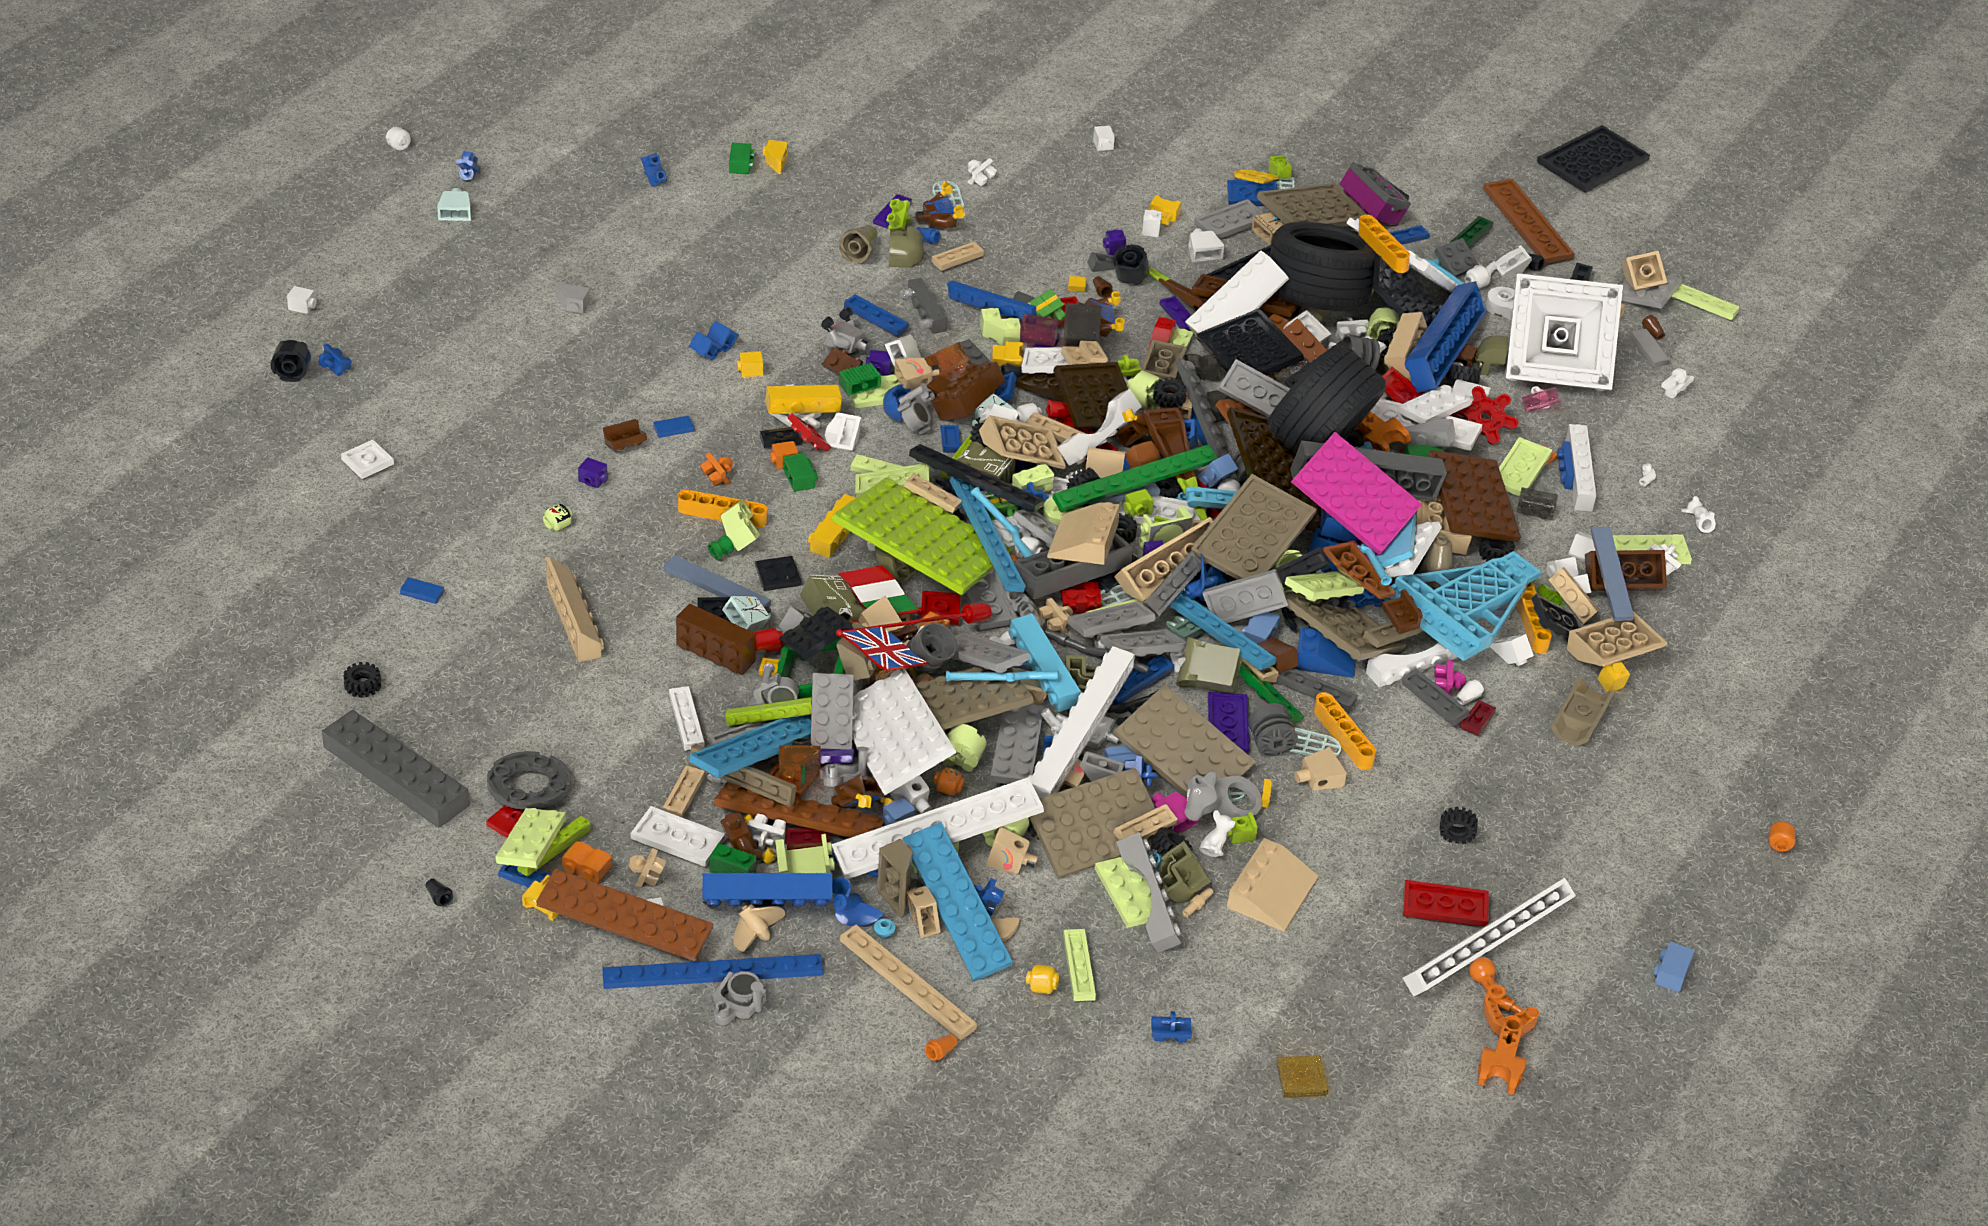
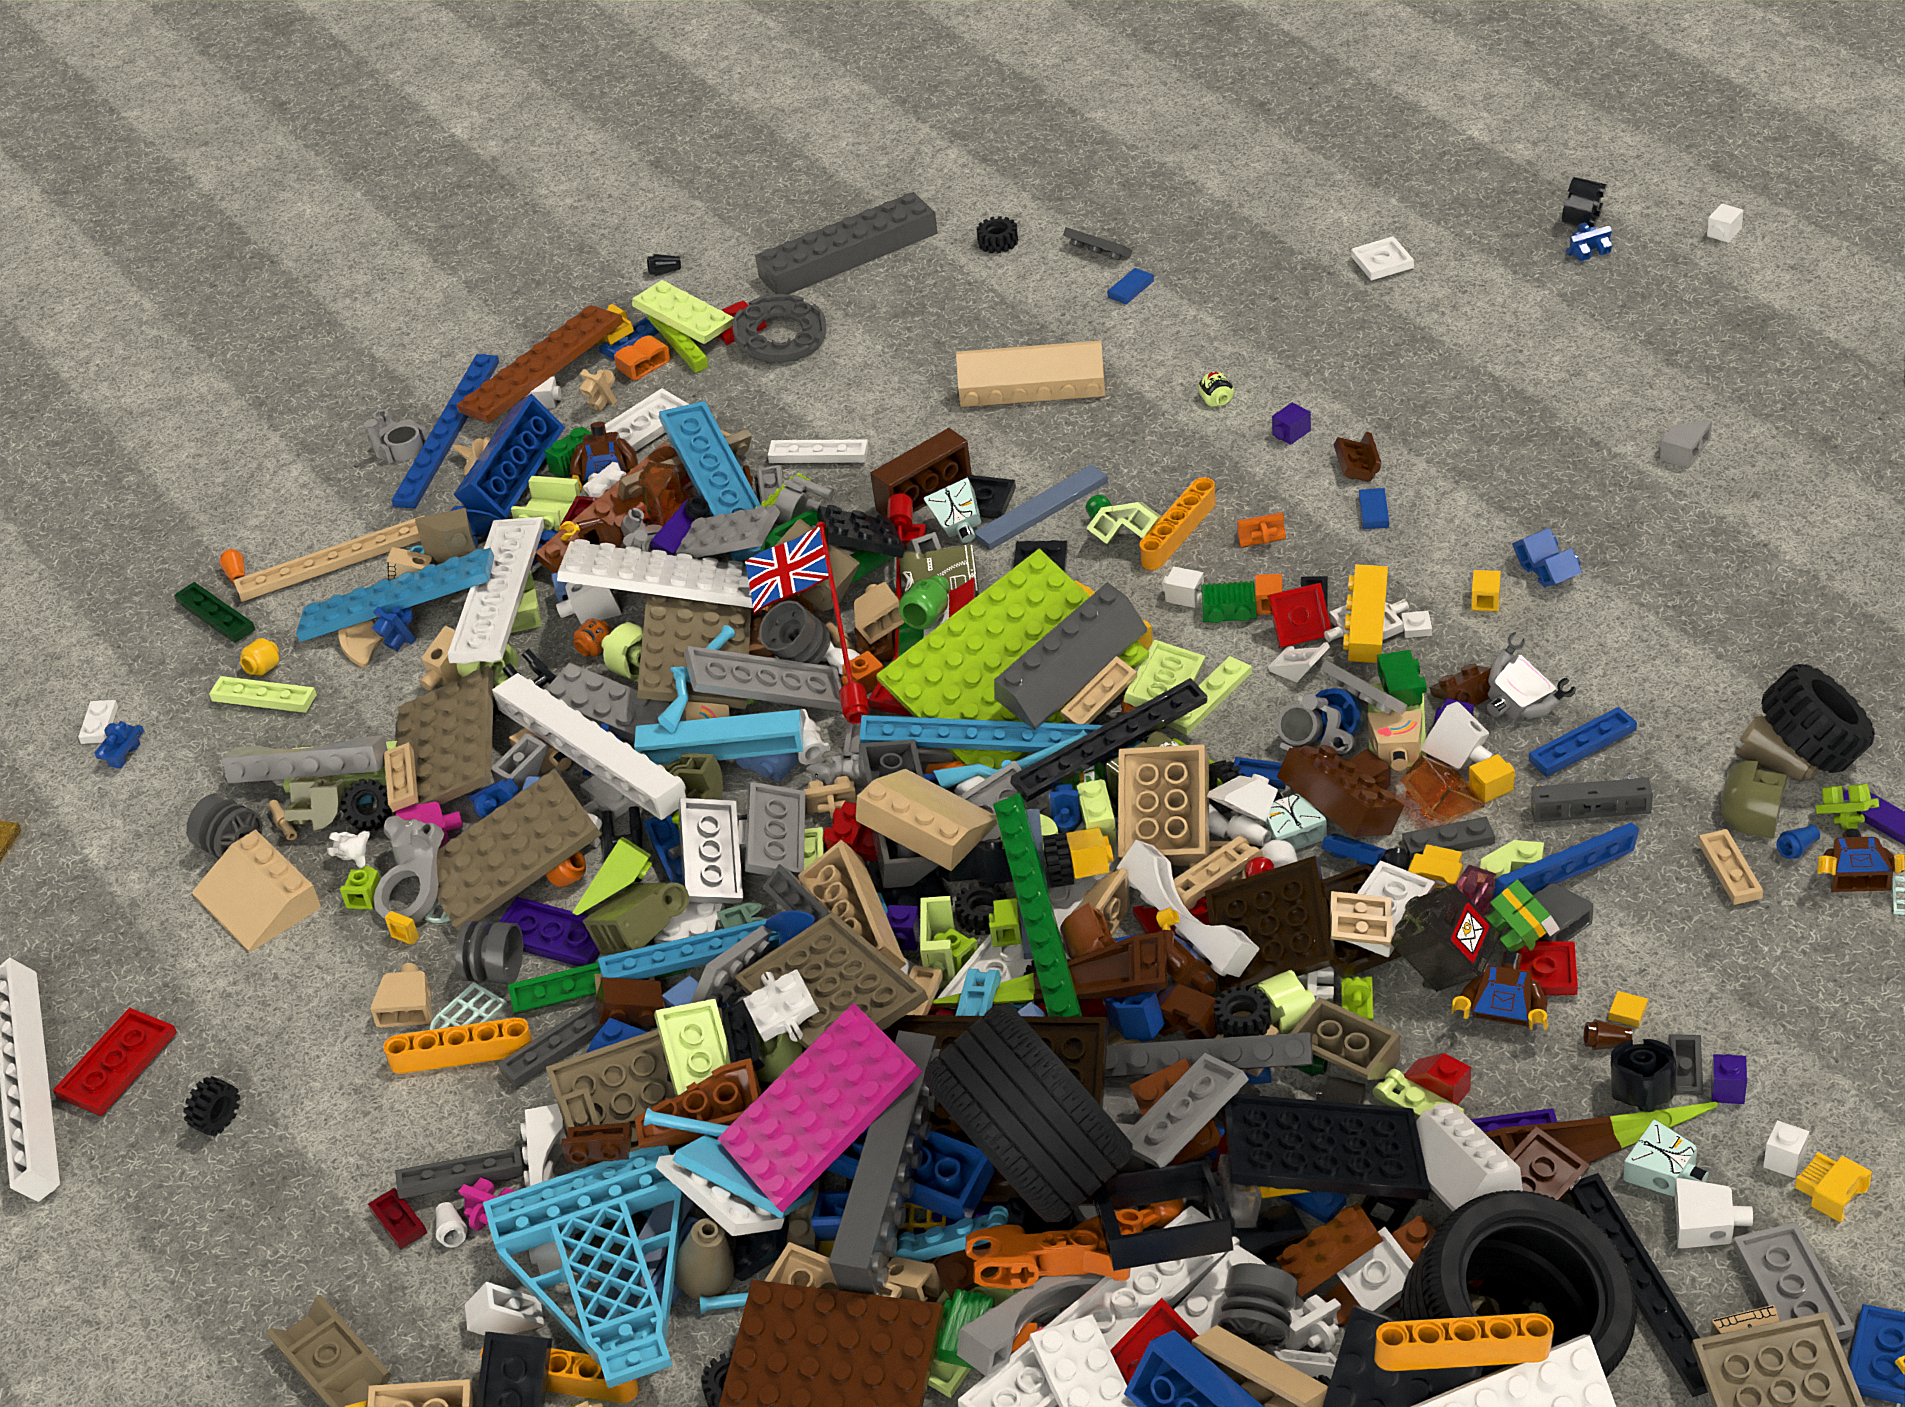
camera: 120 degrees right, 0 degrees up
(368, 616) = (1097, 244): none -> dark grey plate
(790, 494) = (1183, 587): none -> white brick
(849, 214) = (1817, 718): none -> black tyre
(870, 398) = (1368, 691): none -> light grey wing
(879, 583) = (925, 602): none -> bright green piece
(919, 495) = (1069, 656): none -> dark grey slope
(926, 342) = (1491, 778): none -> yellow brick
(999, 1037) = (214, 612): none -> dark green plate
(1065, 471) = (1089, 852): none -> yellow brick
(1146, 1065) = (98, 716): none -> white plate
(1177, 261) = (1662, 1158): none -> light aqua torso
(1192, 682) = (618, 871): none -> lime slope
(1233, 914) = (219, 823): none -> dark grey wheel
(1282, 541) = (781, 1005): none -> white plate

